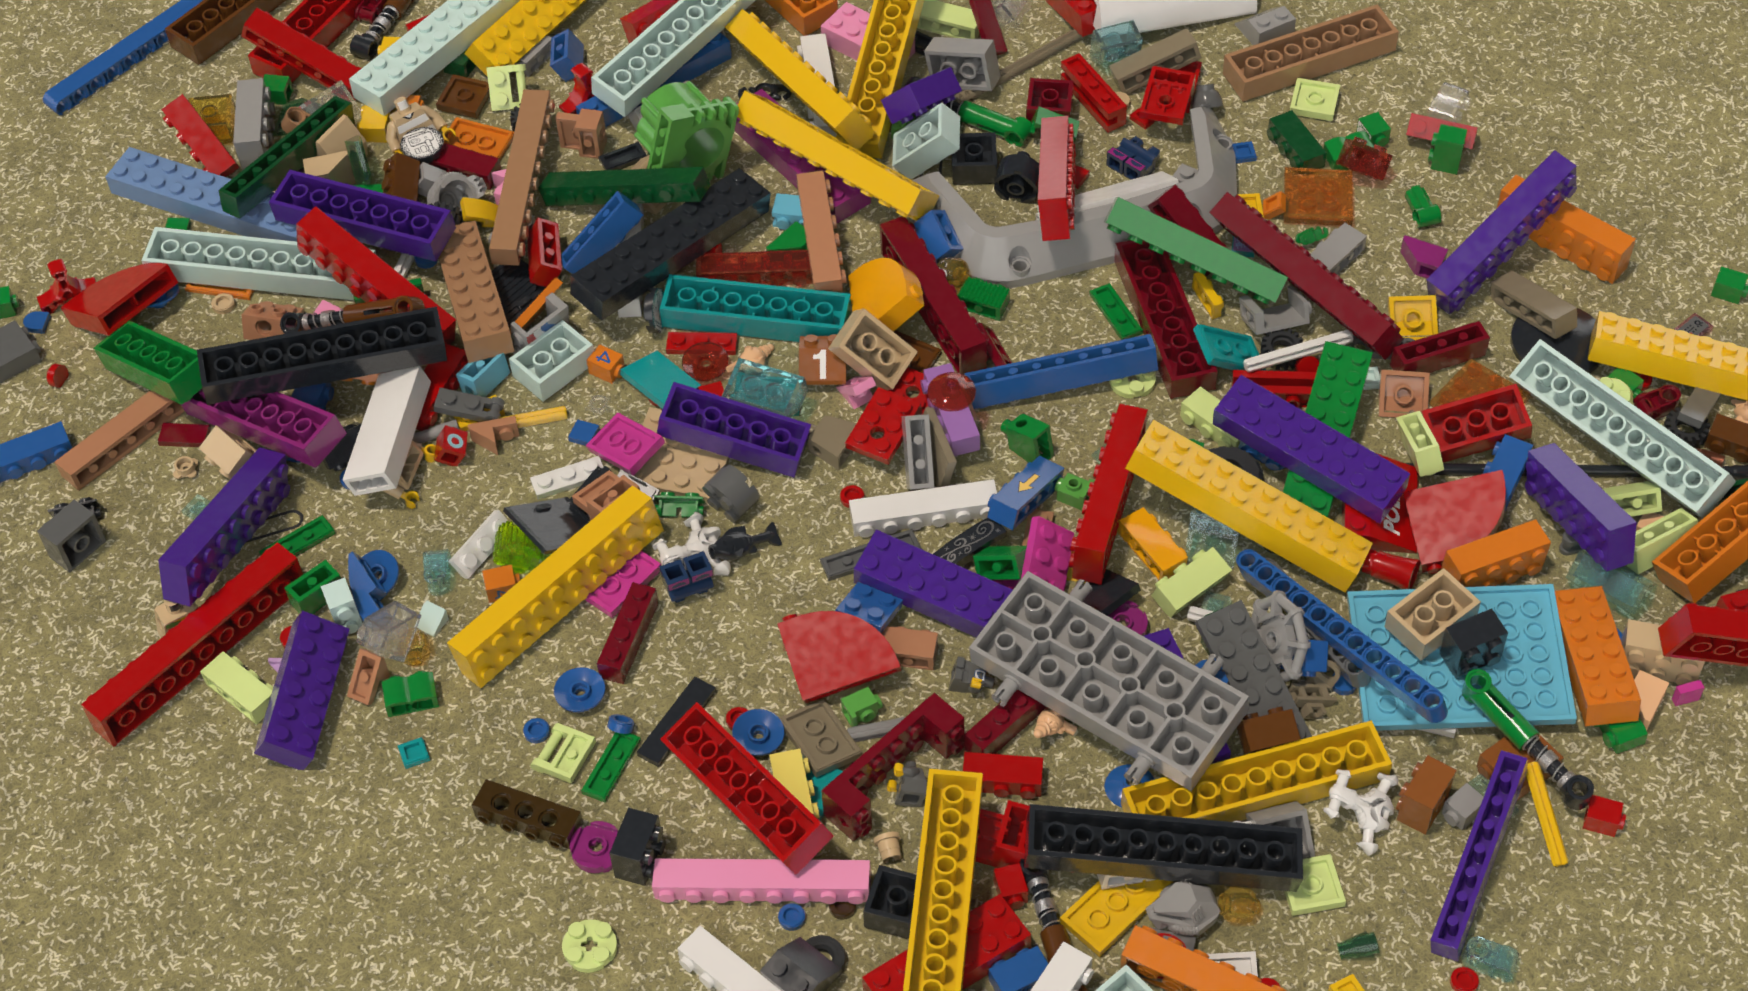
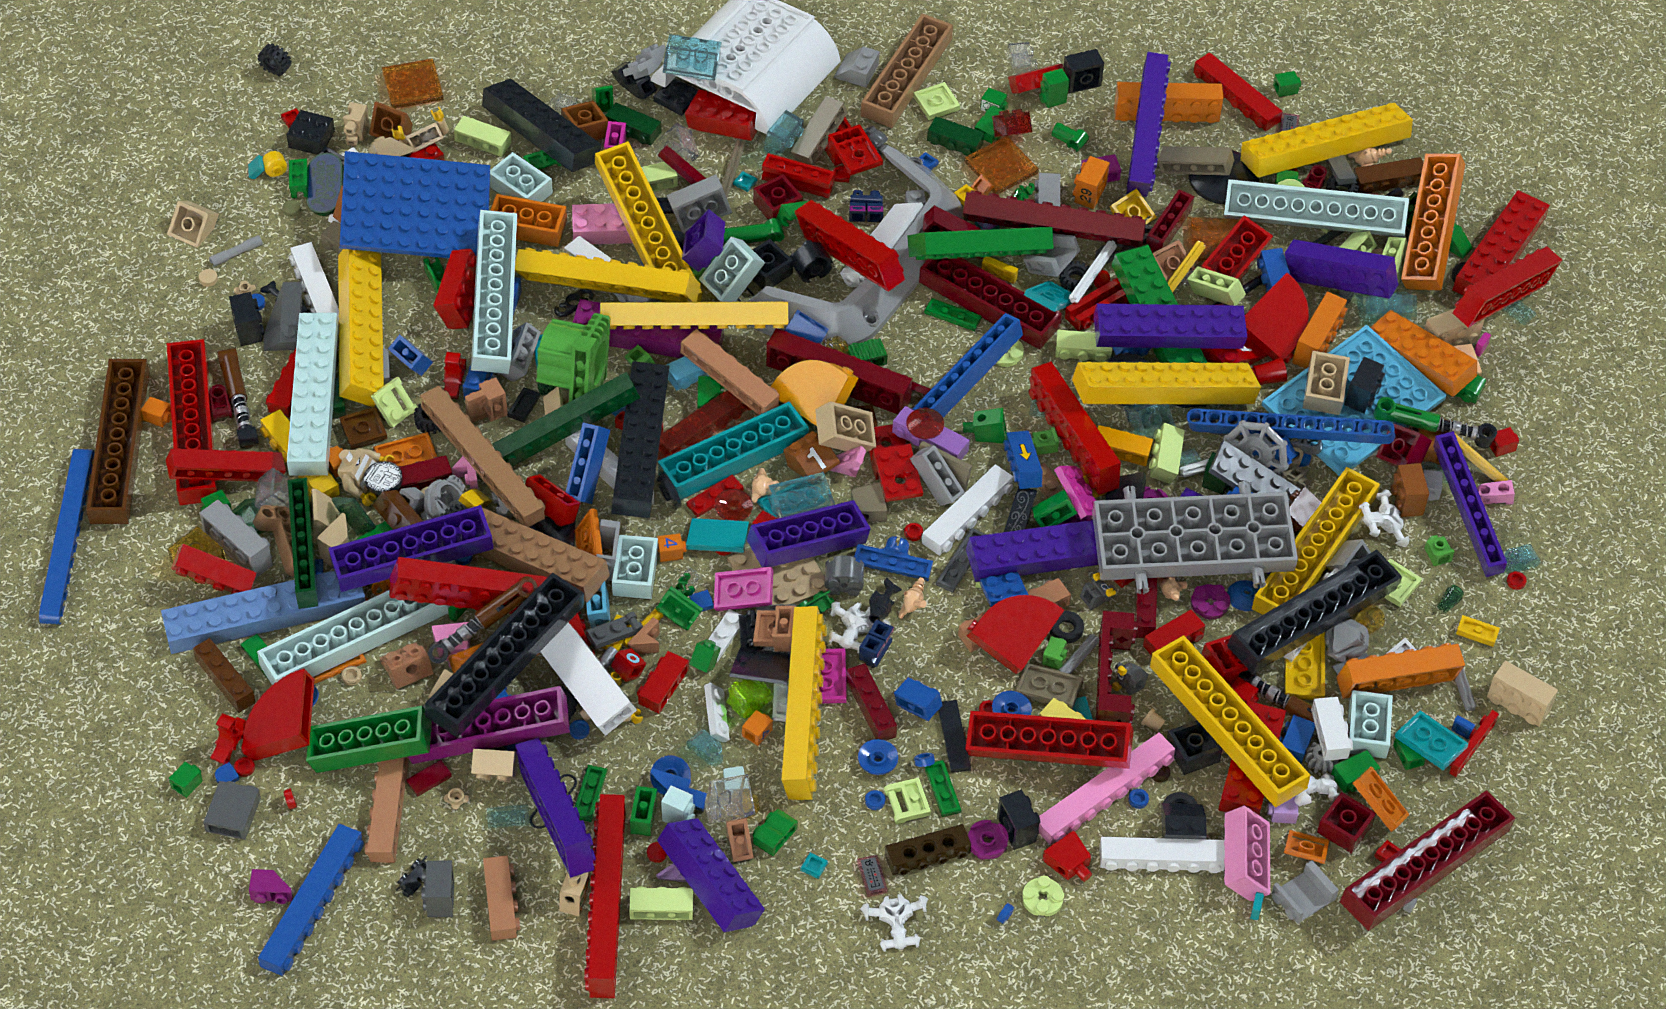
camera: 45 degrees left, 0 degrees up
(57, 325) = (244, 766): none -> red tile
(116, 582) = (500, 898): none -> nougat brick
(122, 233) = (224, 675): none -> reddish brown brick
(430, 853) = (895, 913): none -> white piece
(454, 802) = (872, 875): none -> tile
(465, 483) = (663, 682): none -> red brick
(524, 483) = (705, 655): none -> green brick
(533, 933) = (1005, 913): none -> blue tile
(549, 424) = (679, 608): none -> green hinge
(578, 406) = (682, 582): none -> green piece
(654, 924) = (1069, 857): none -> red torso
(675, 659) = (918, 699): none -> blue brick
(765, 175) = (639, 355): none -> bright green brick
(779, 559) = (913, 599): none -> light nougat piece
(801, 509) = (894, 559): none -> blue plate
(906, 704) = (1075, 620): none -> black tyre
(1042, 70) = (745, 181): none -> teal tile
(1082, 752) = (1213, 592): none -> magenta plate
(1392, 262) = (1091, 182): none -> orange brick
(1399, 884) = (1439, 550): none -> bright green brick
(1408, 406) = (1185, 265): none -> yellow axle
(1461, 742) = (1407, 447): none -> dark red brick
(1498, 148) = (1084, 70): none -> black brick
(1536, 866) = (1497, 492): none -> bright pink leg
(1661, 263) = (1238, 92): none -> red brick

